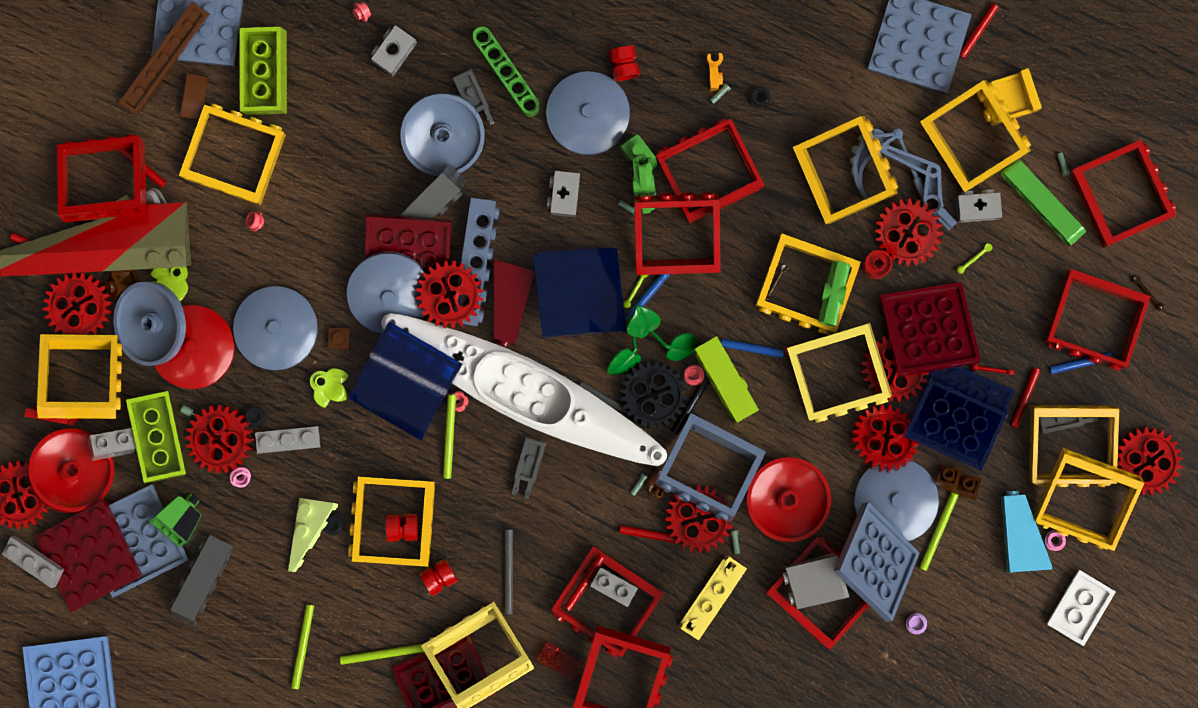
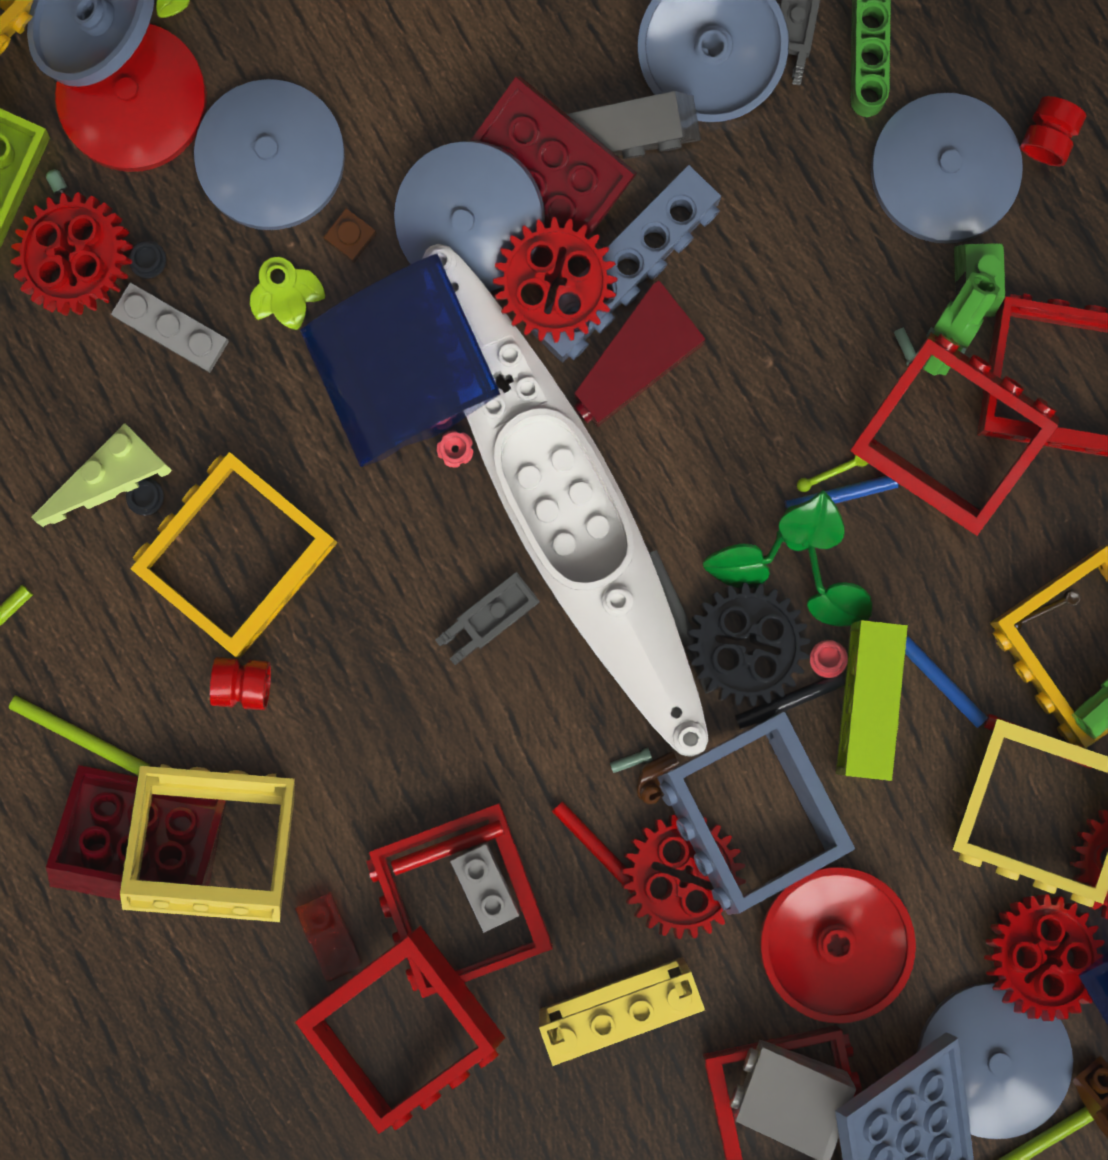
camera: 40 degrees right, 0 degrees up
(240, 482) = (57, 339): bright pink plate -> none
(401, 527) = (236, 571): red wheel -> none
(449, 436) = (406, 489): lime bar -> none
(508, 571) = (349, 750): dark grey bar -> none
(566, 206) = (843, 241): light grey brick -> none
(579, 292) = (747, 416): clear blue slope -> none
(735, 542) = (713, 947): sand green piece -> none

